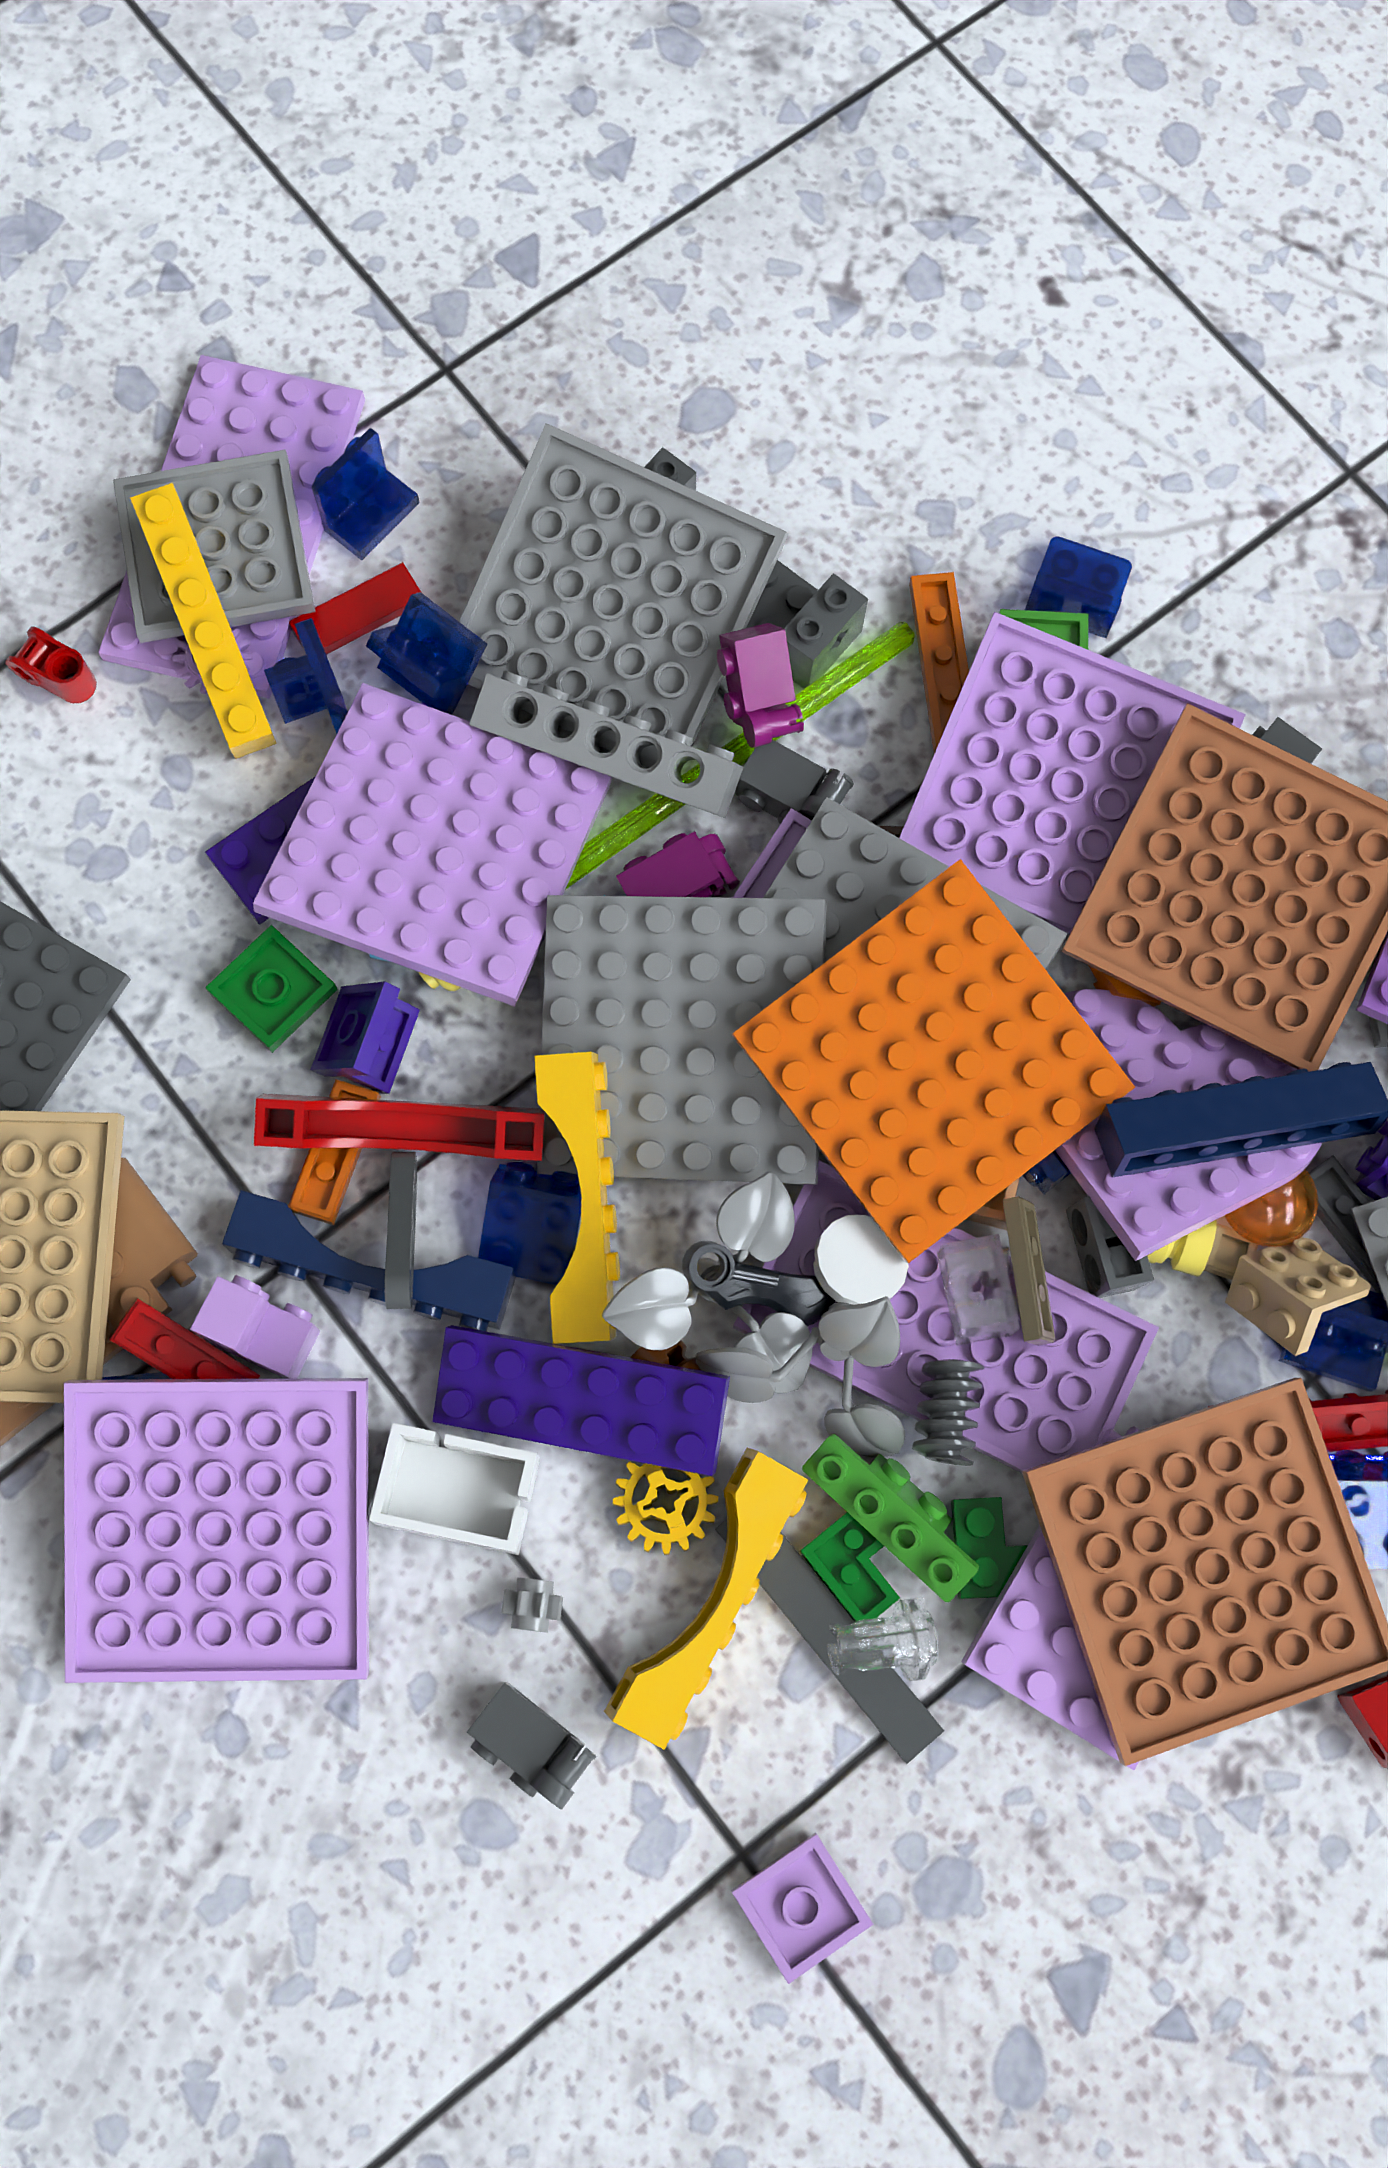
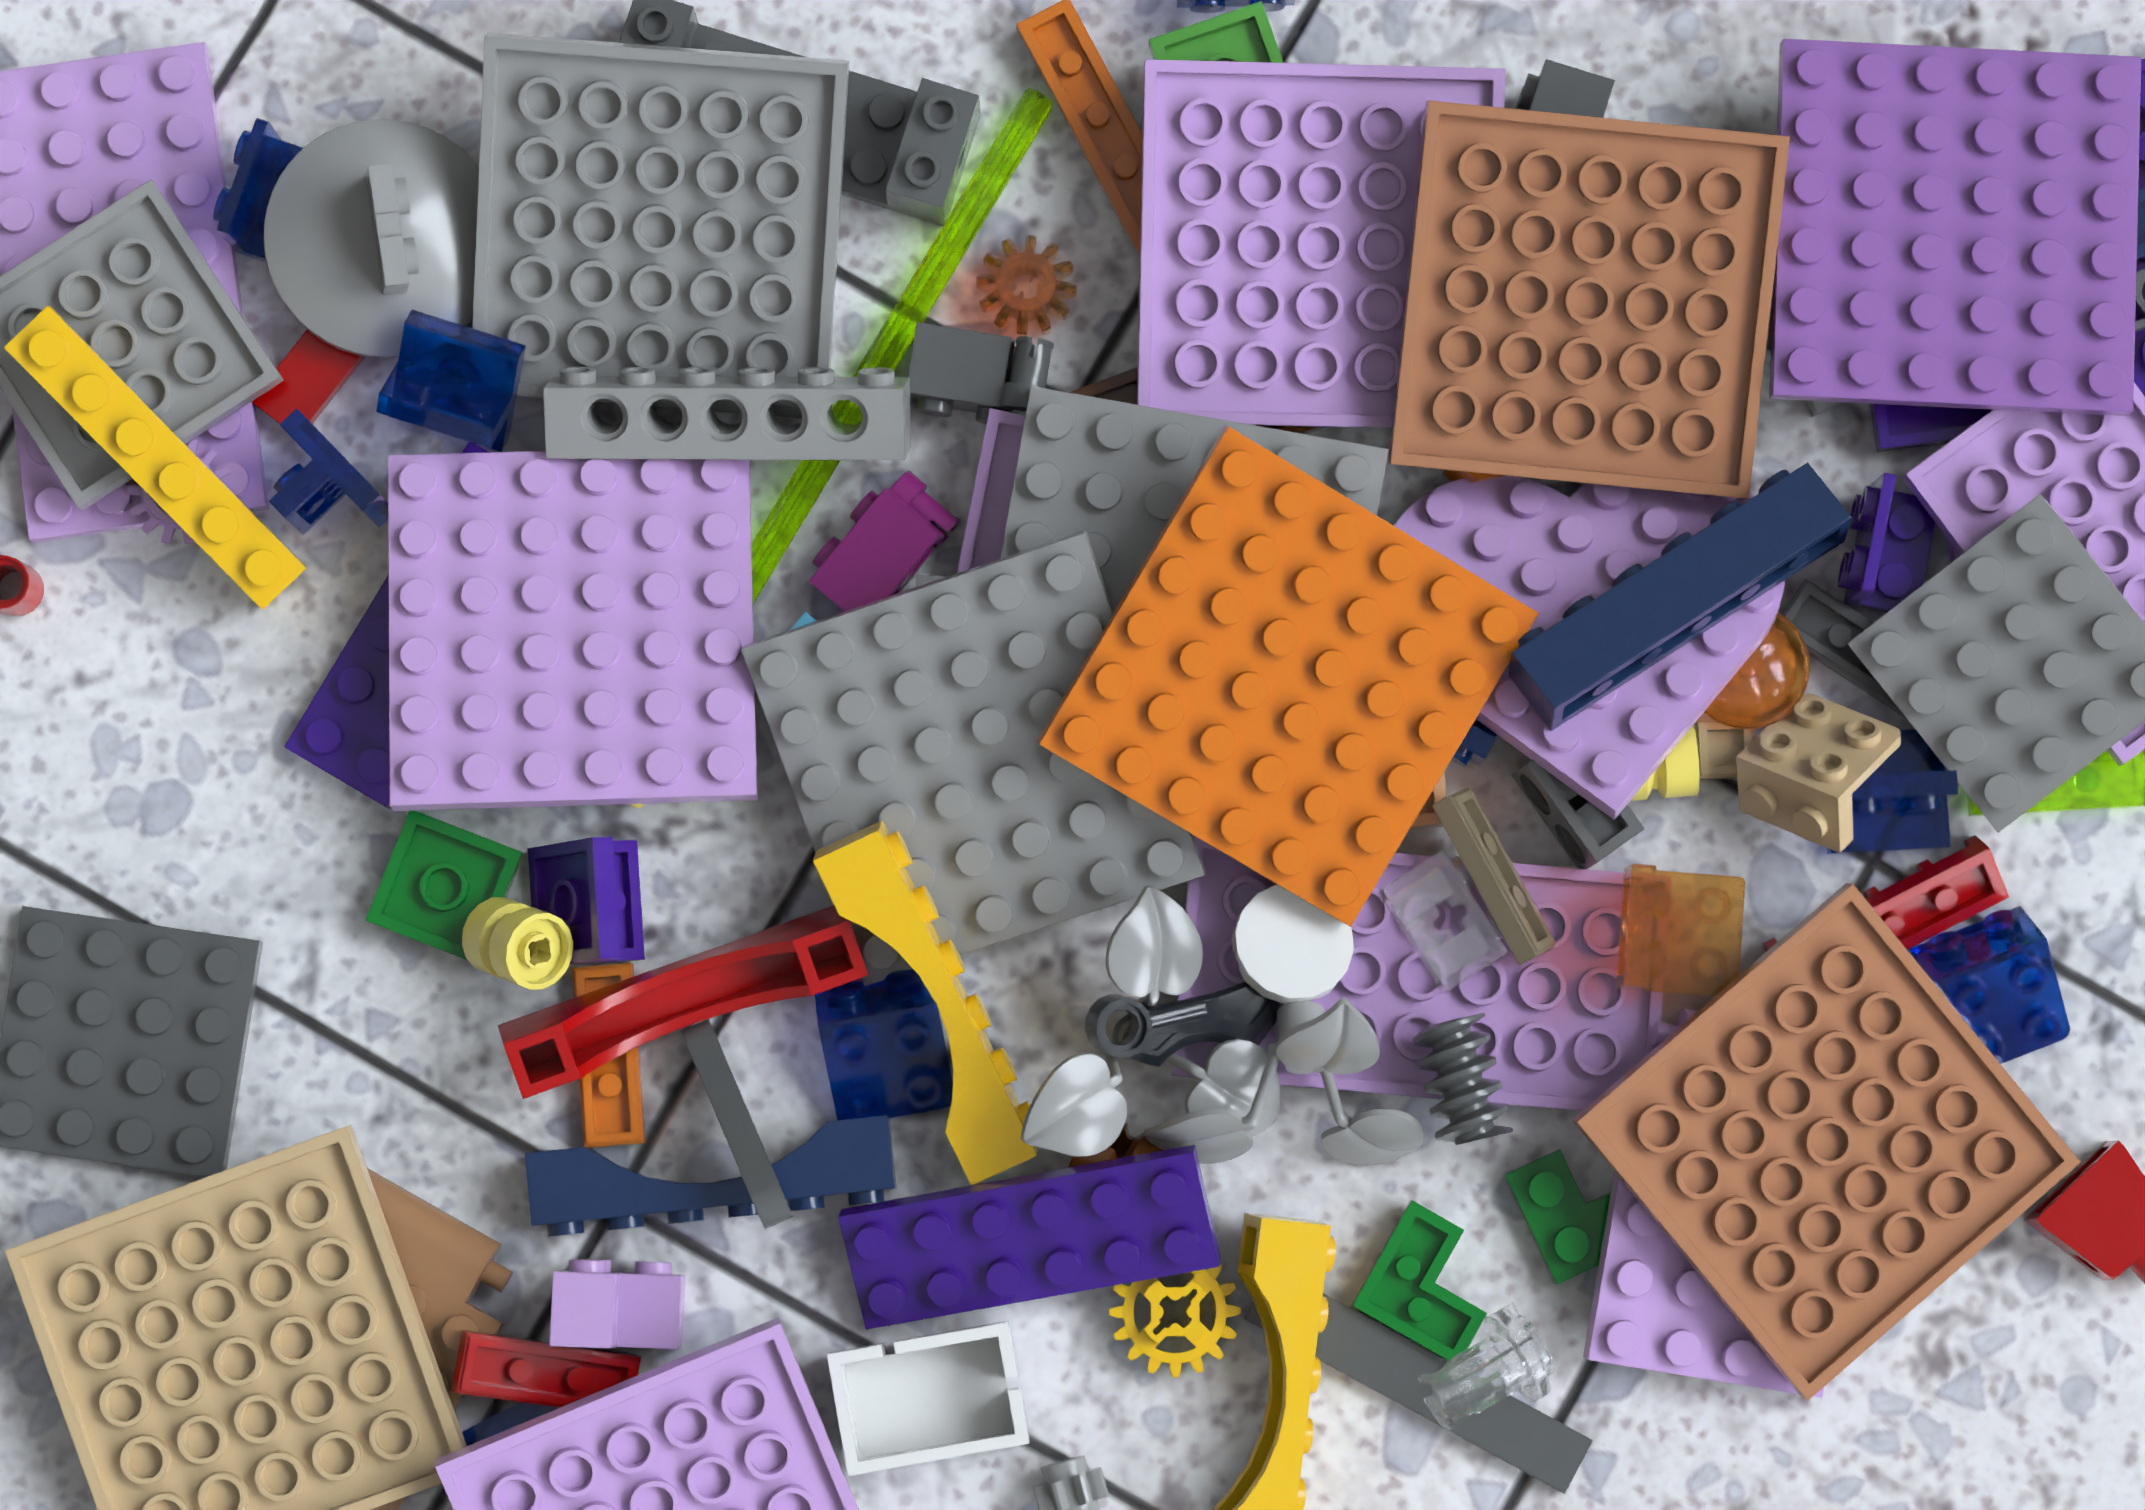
camera: 20 degrees left, 10 degrees up
(302, 1040) = (517, 943): none -> light yellow wheel
(414, 535) = (372, 229): none -> light grey bracket
(759, 683) = (887, 265): magenta hinge -> none
(849, 729) = (1004, 283): none -> clear orange gear
(895, 1513) = (1444, 1219): bright green bracket -> none
(1151, 1366) = (1679, 931): none -> clear orange bracket

